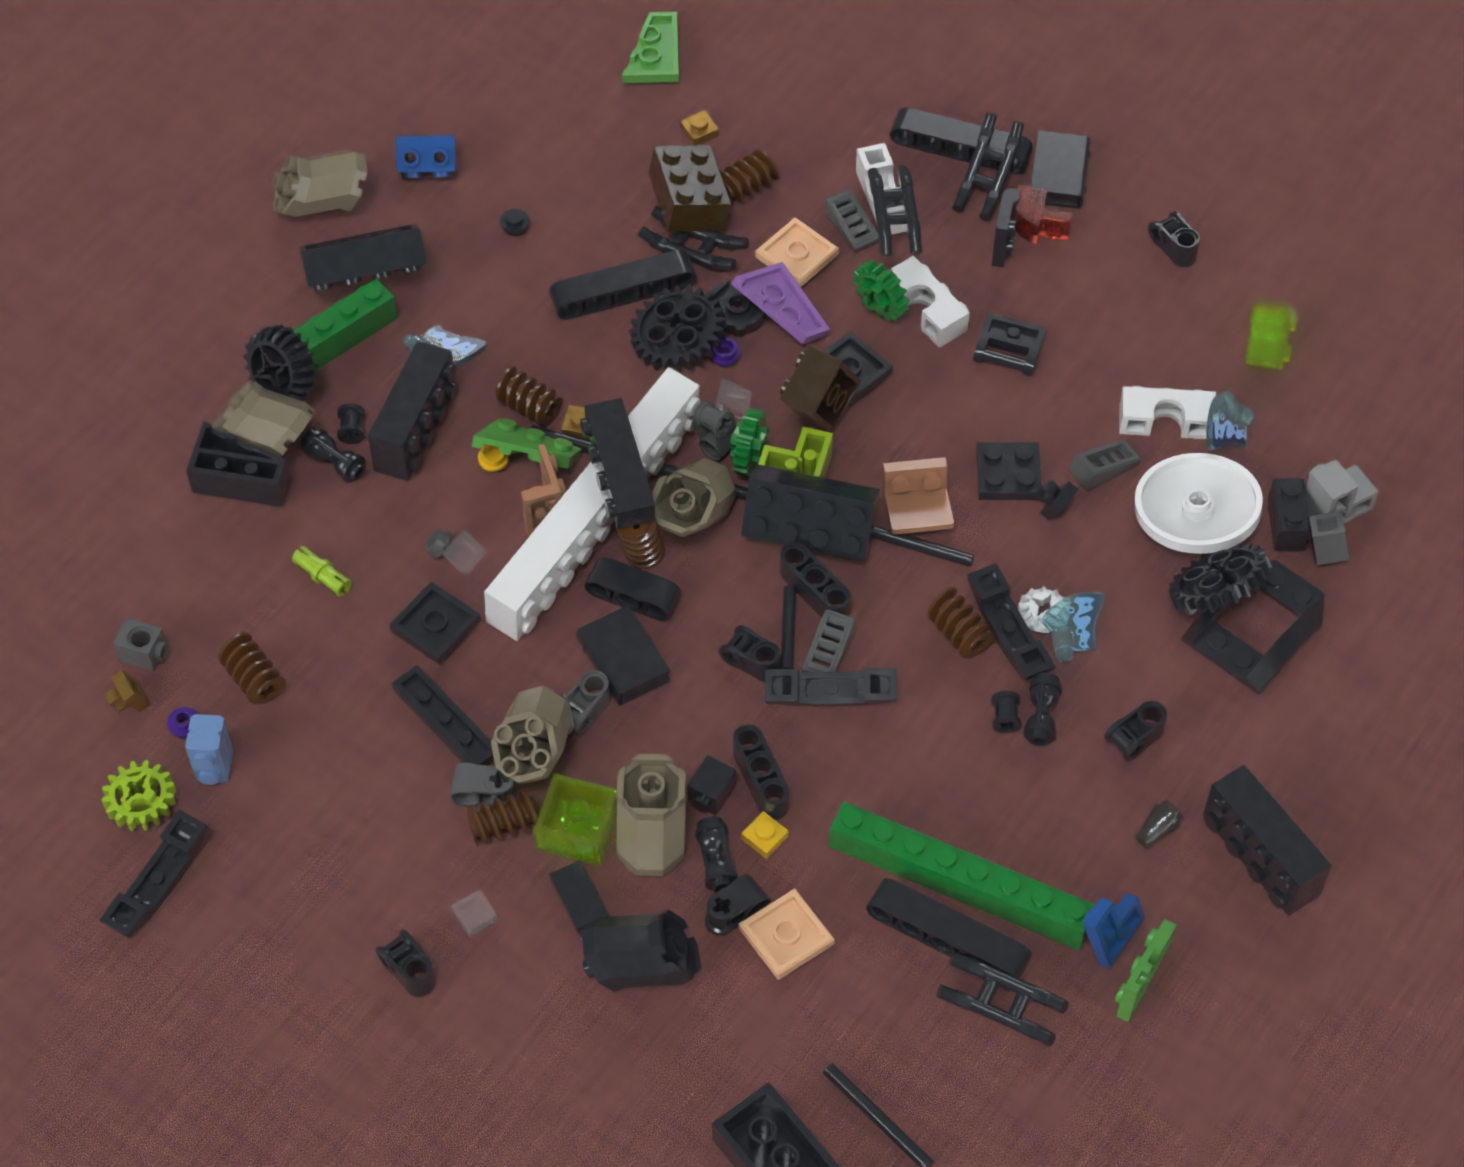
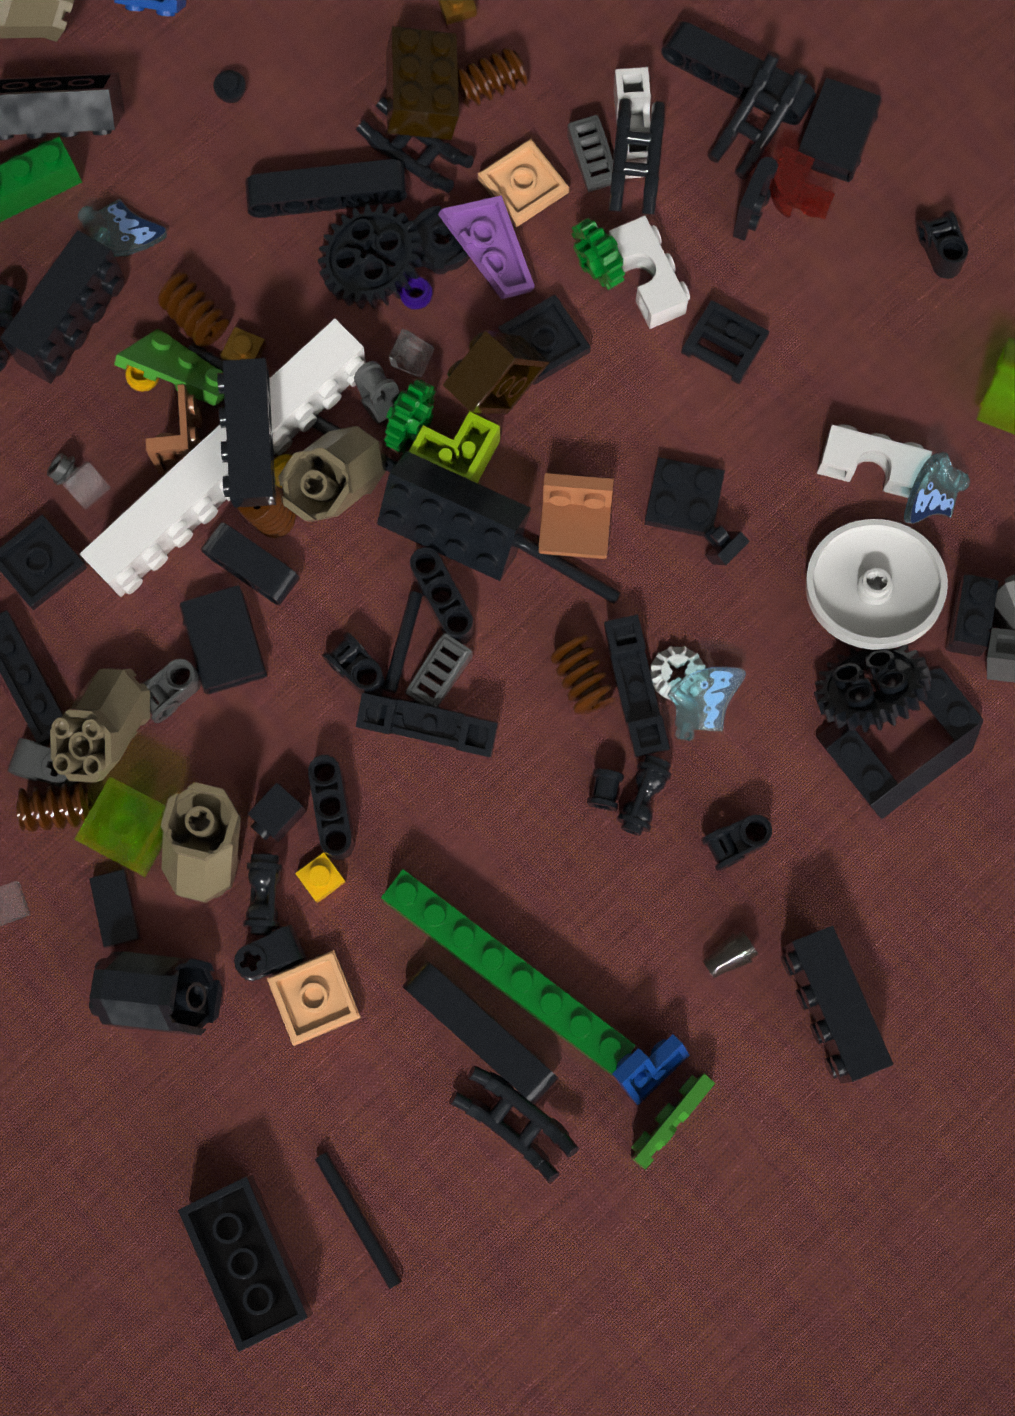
camera: 15 degrees right, 20 degrees up
(1091, 476) = (771, 518): dark grey slope -> none

